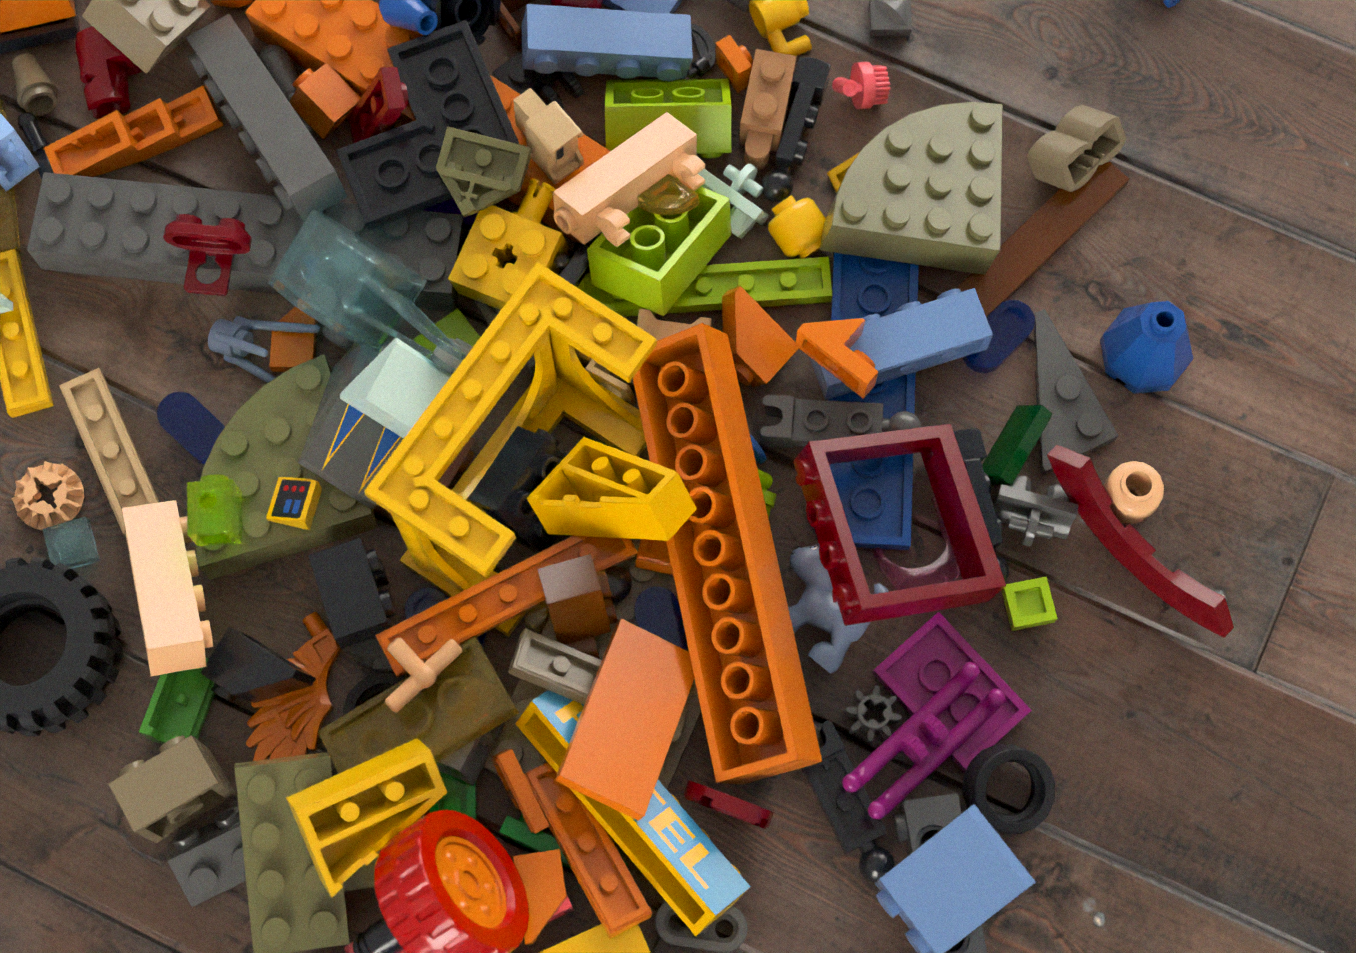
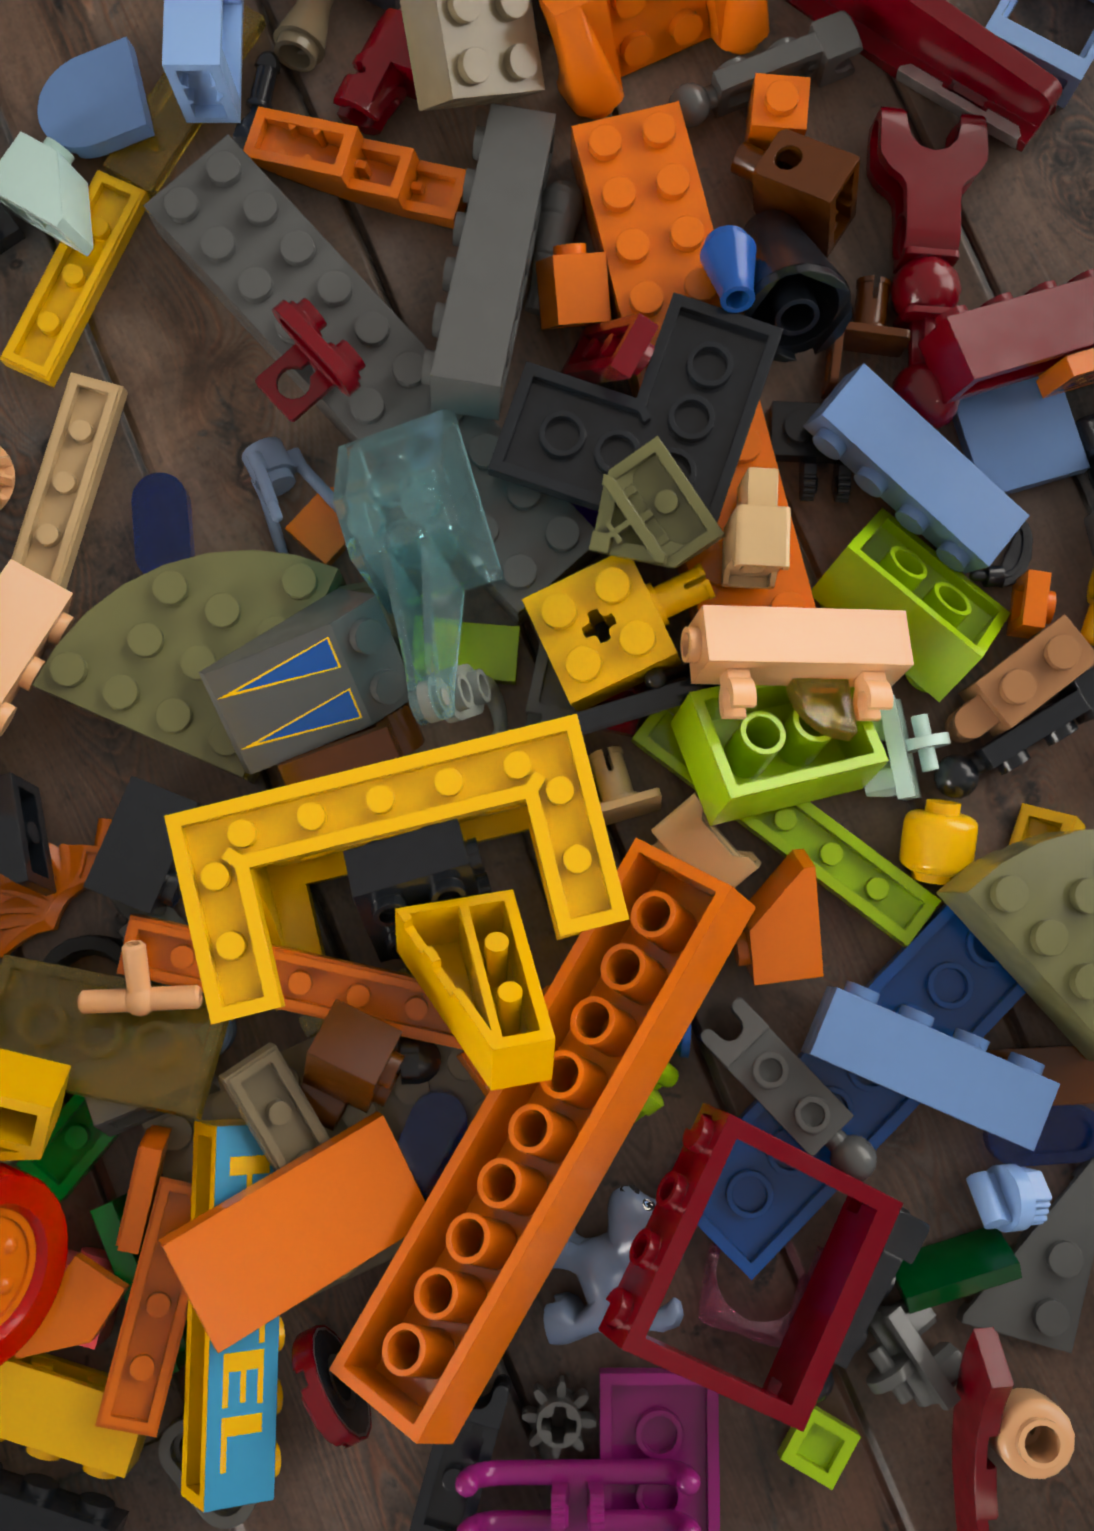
camera: 40 degrees right, 10 degrees up
(214, 511) = (82, 647): clear neon green brick -> none
(294, 502) = (170, 704): slope -> none
(396, 387) = (360, 698): light aqua slope -> none
(830, 347) = (846, 1022): orange slope -> none
(1009, 380) = (1010, 1197): none -> light blue piece

